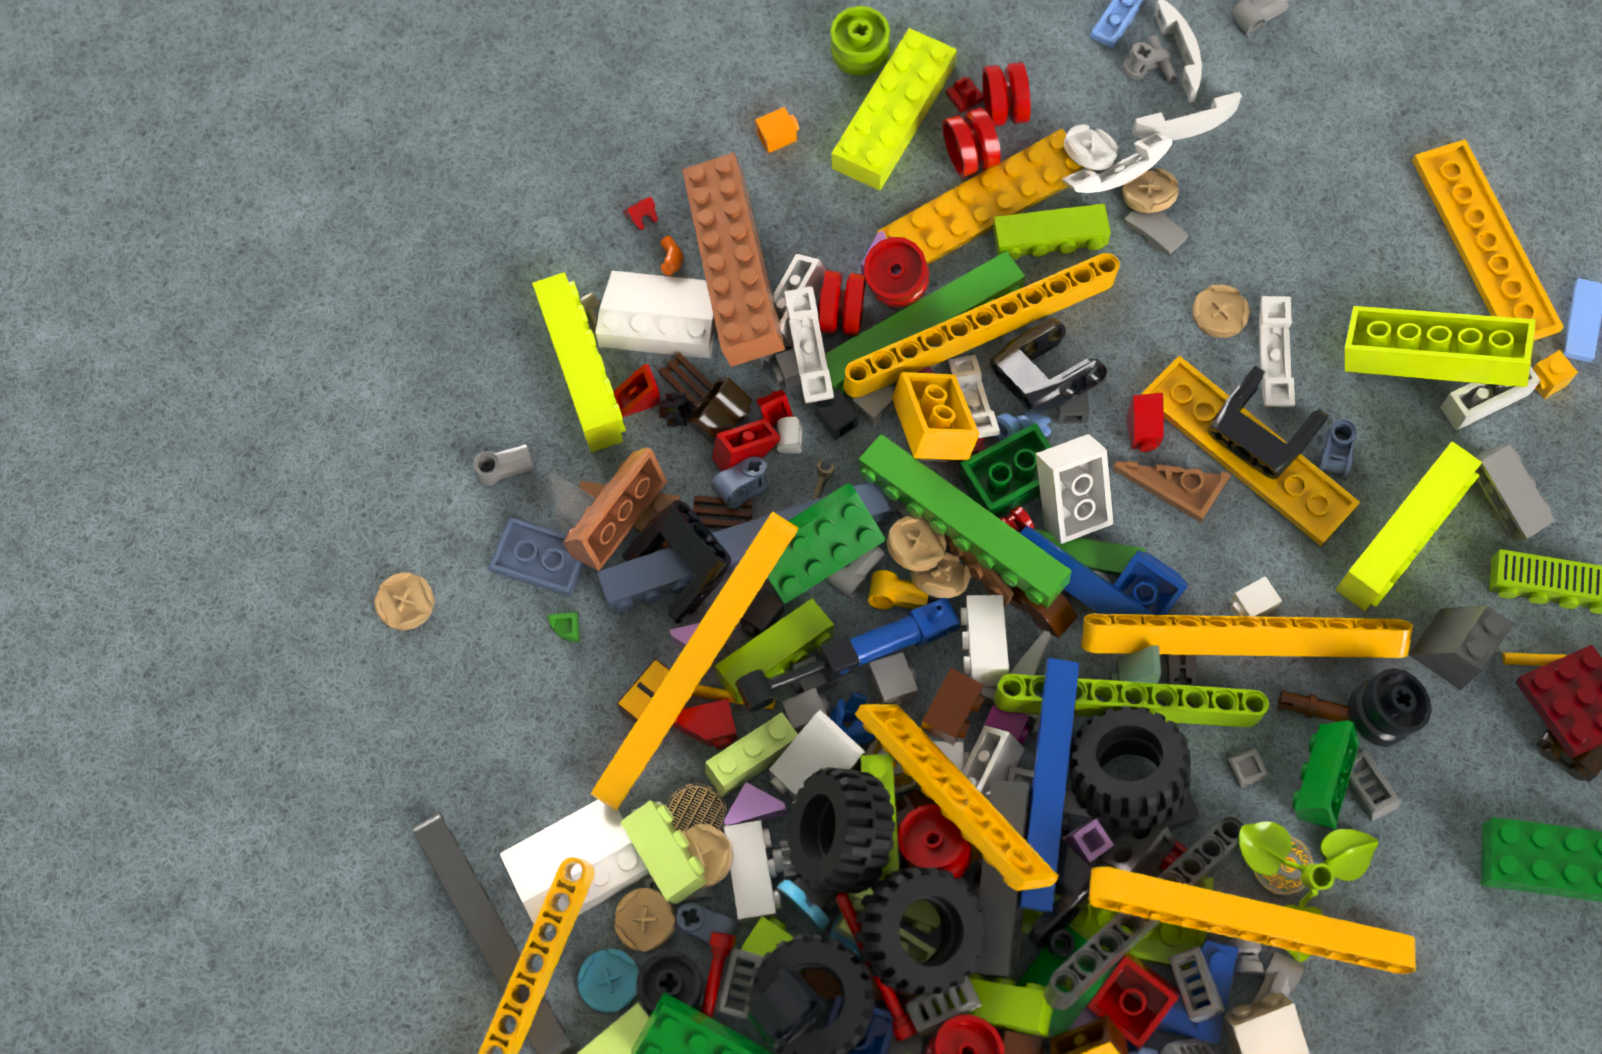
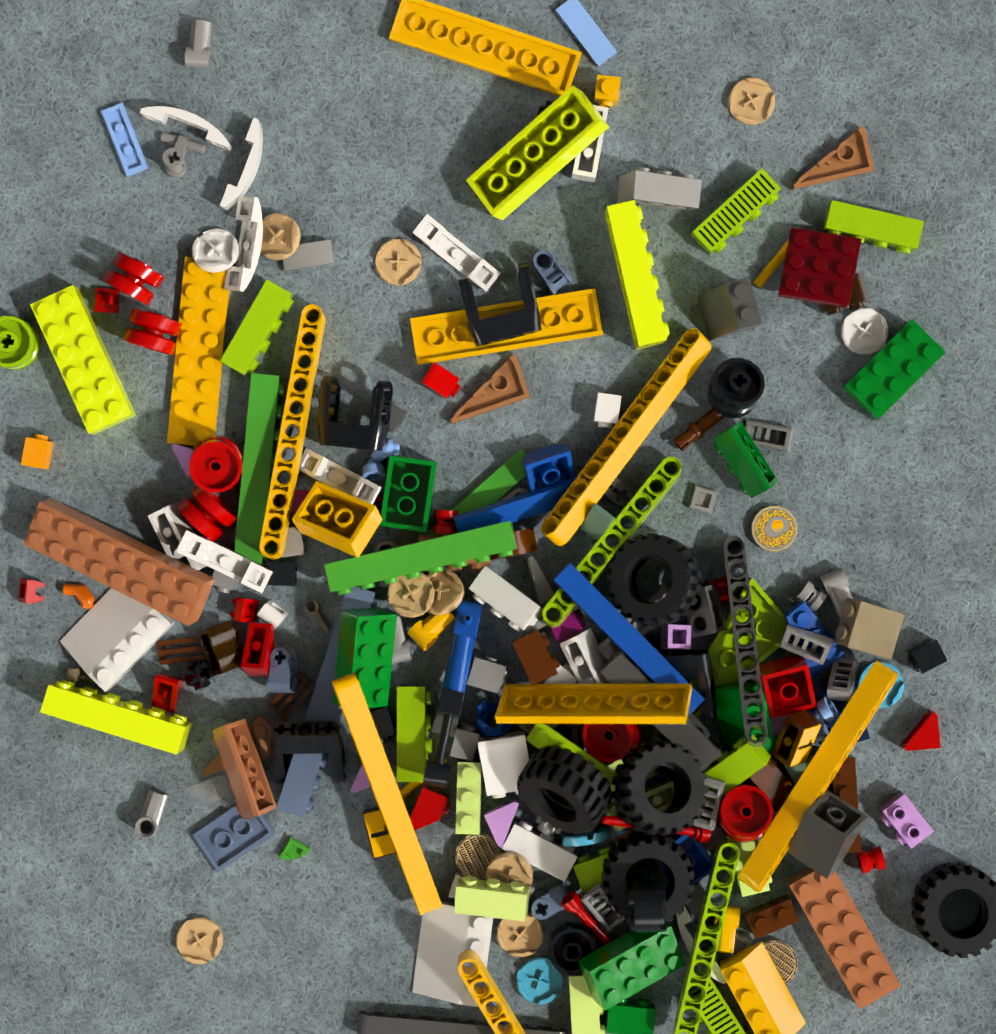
camera: 60 degrees left, 20 degrees up
(1060, 936) = (727, 709): black hinge -> none
(1074, 488) = (453, 468): white brick -> none
(1251, 920) = (797, 585): yellow beam -> none
(1345, 850) = (759, 533): lime plant -> none
(1559, 801) = (864, 331): none -> white tile

